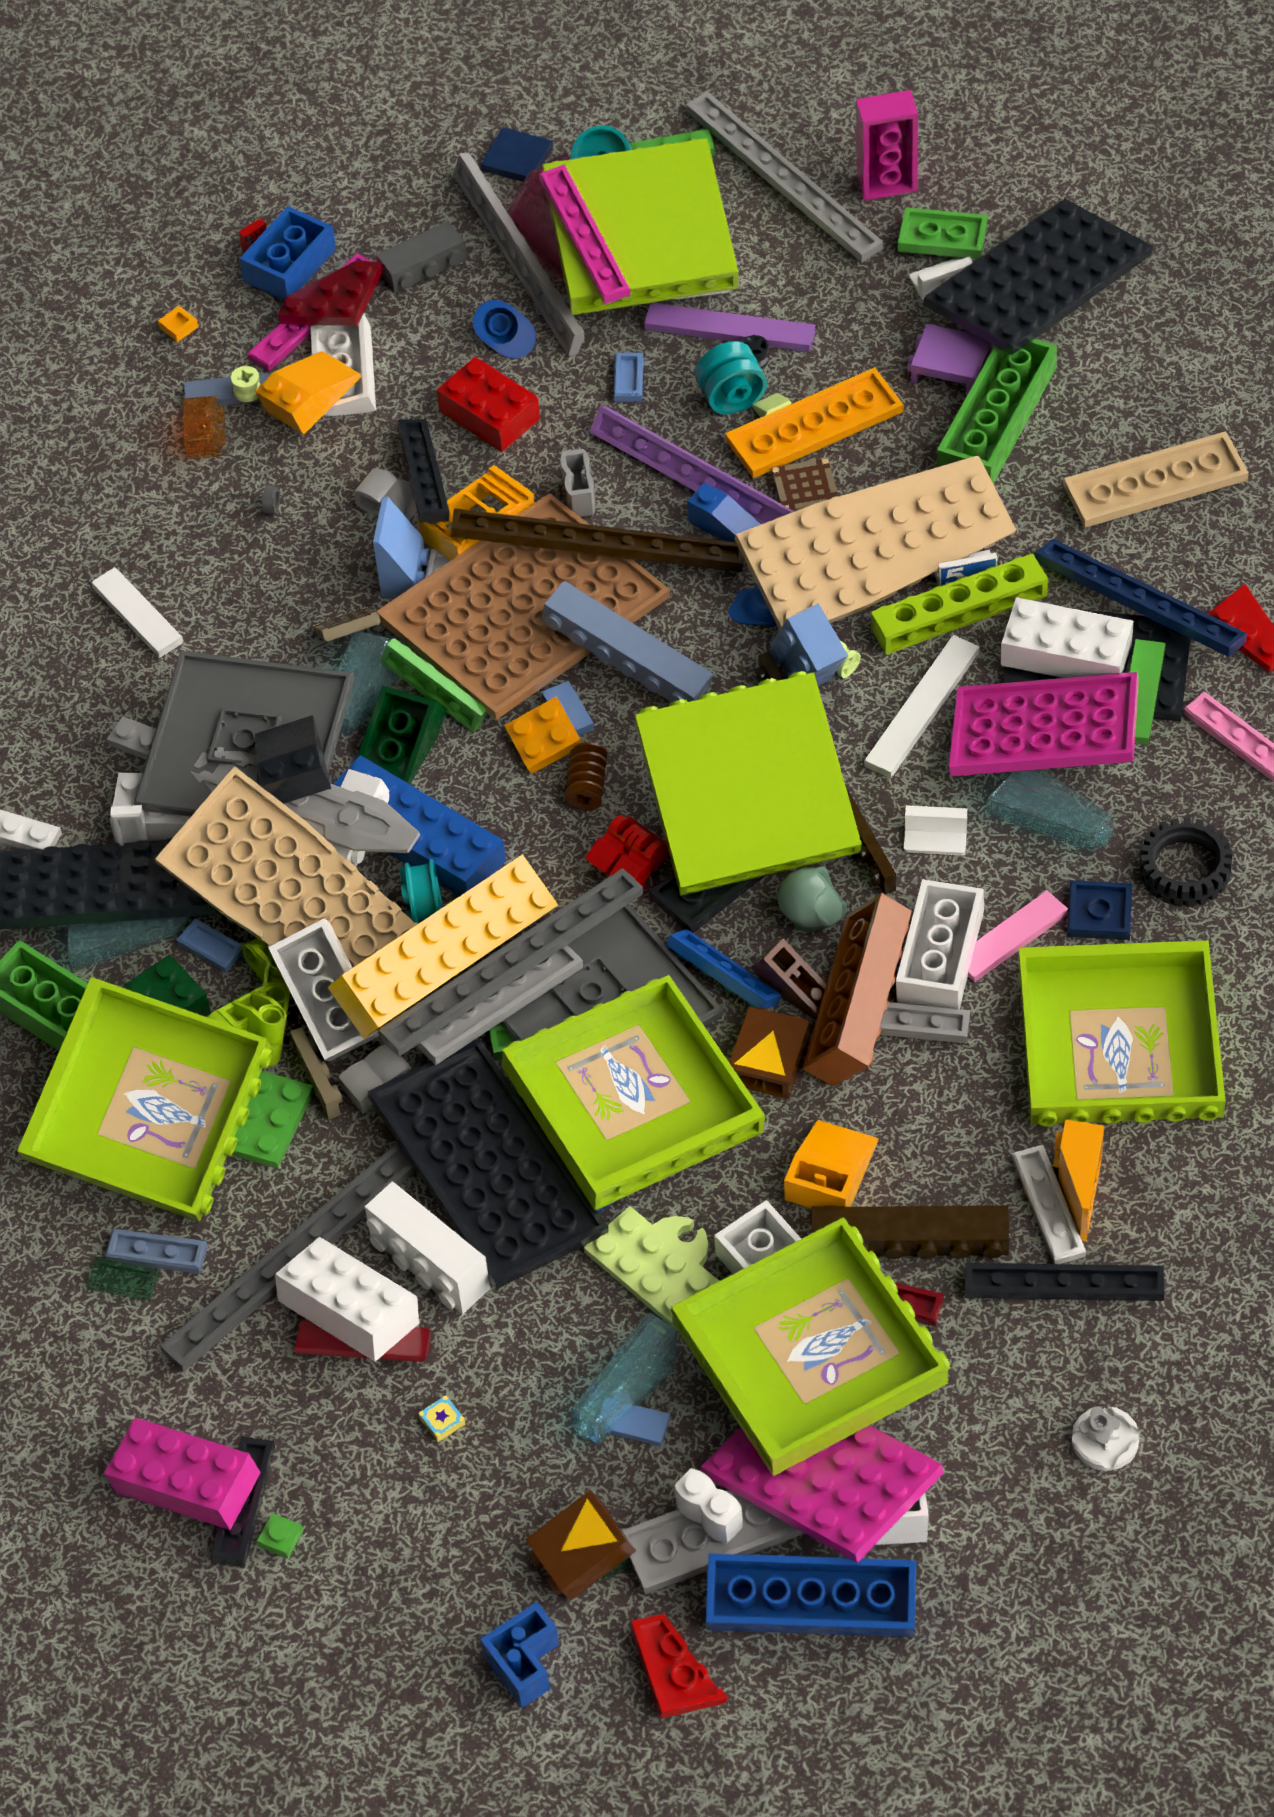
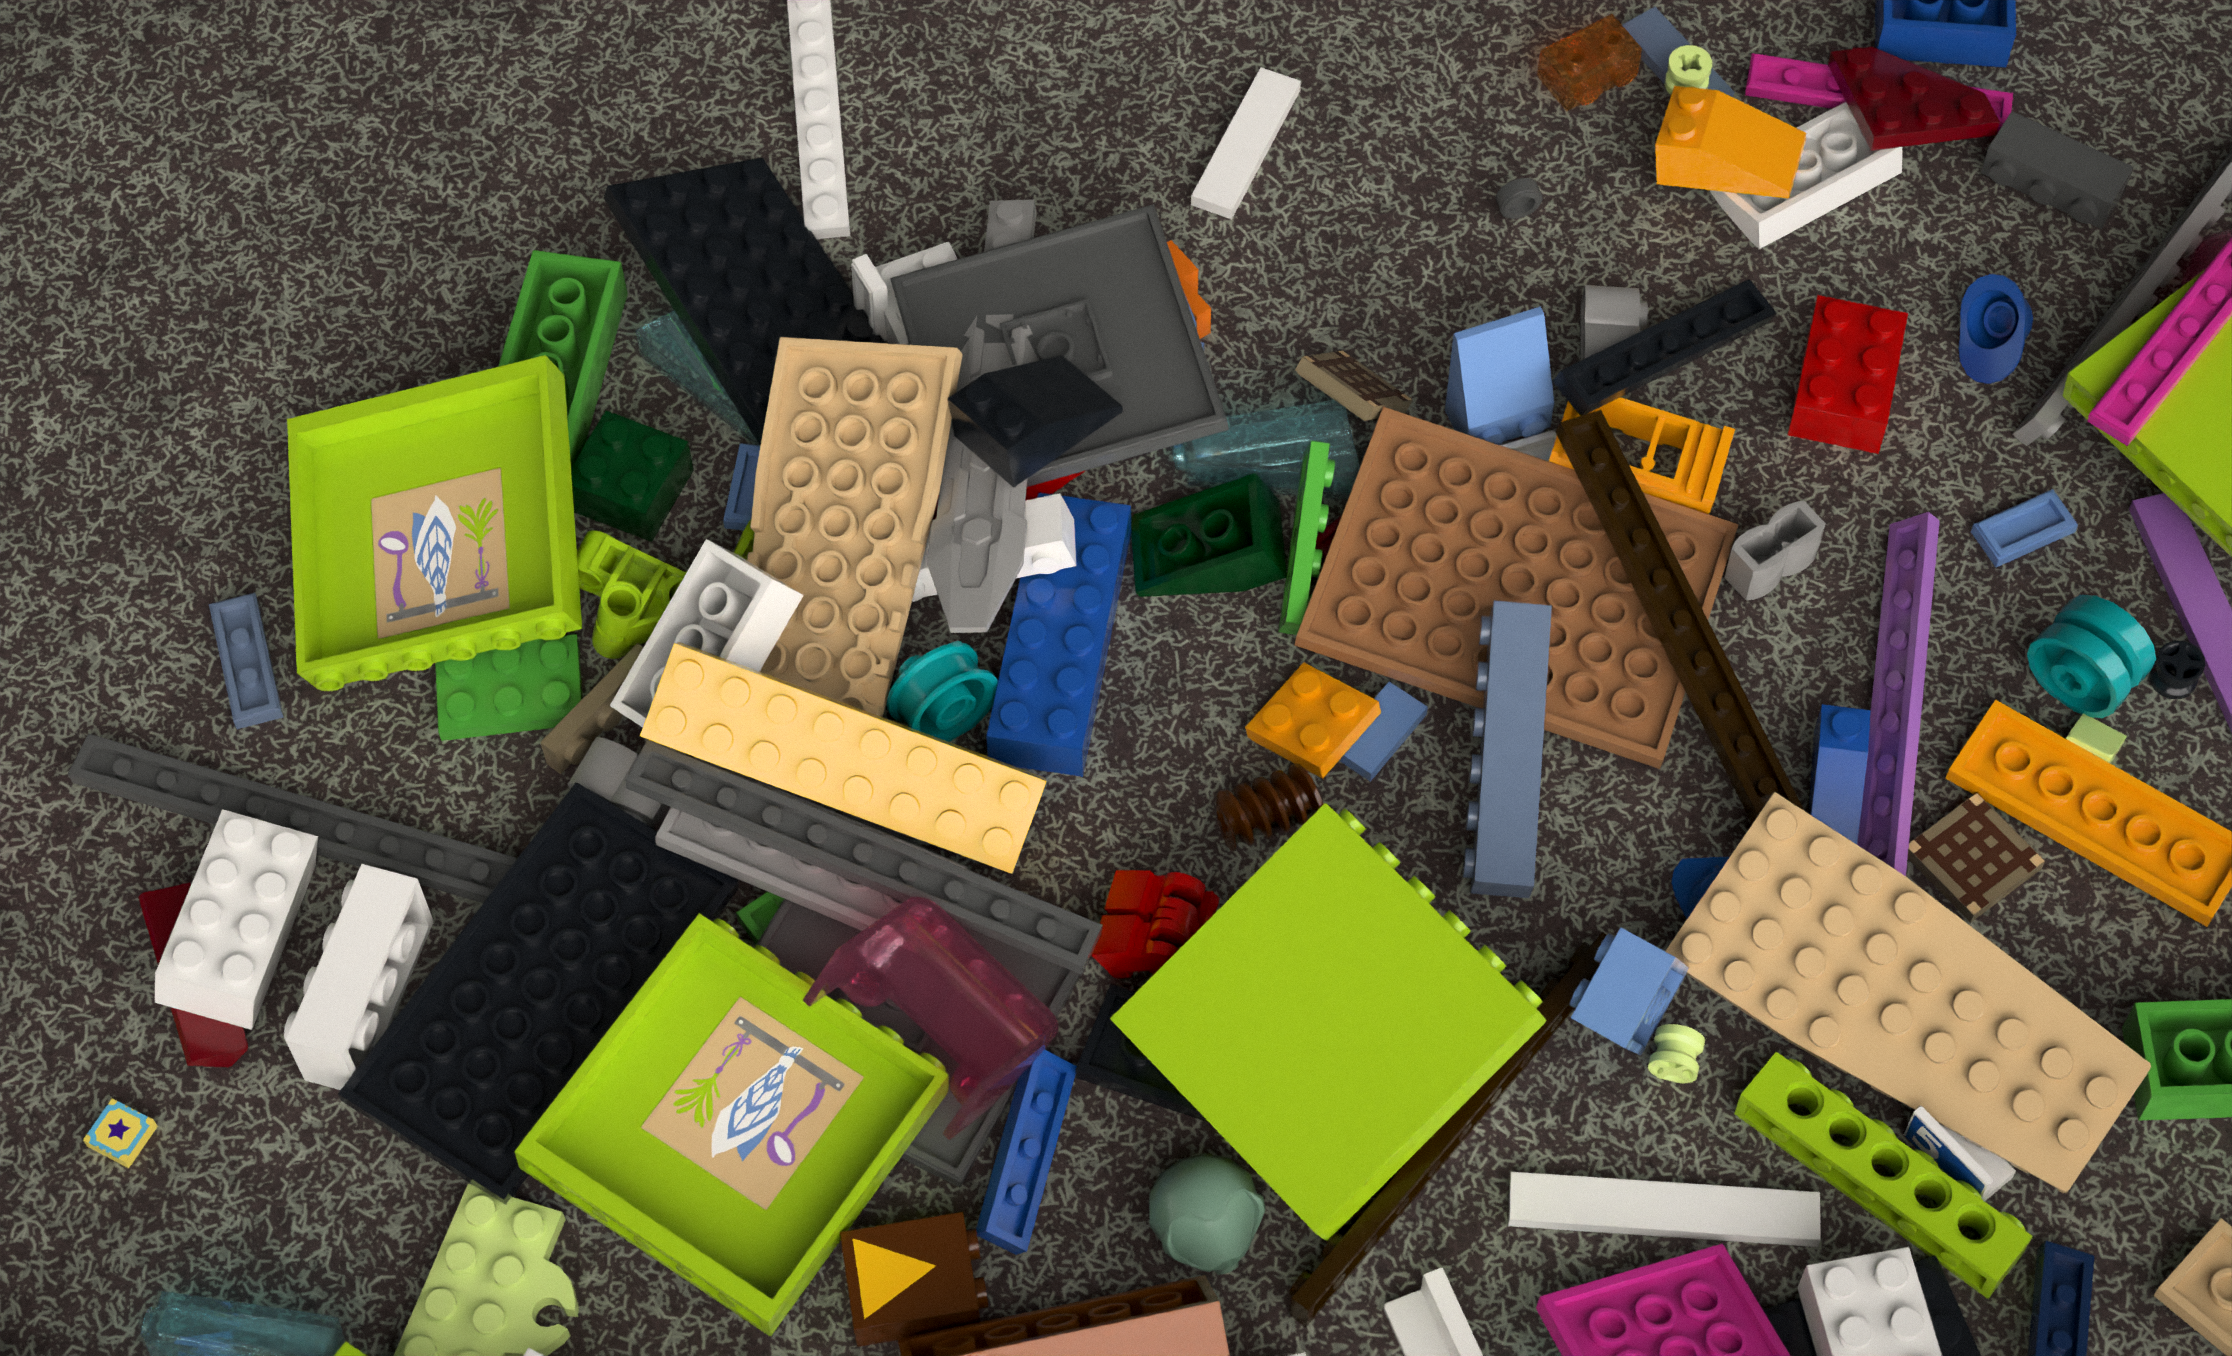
camera: 60 degrees right, 5 degrees up
(123, 1279) = (187, 643): clear green tile -> none
(631, 954) = (951, 992): none -> clear pink windscreen
(792, 977) = (1054, 1248): reddish brown slope -> none

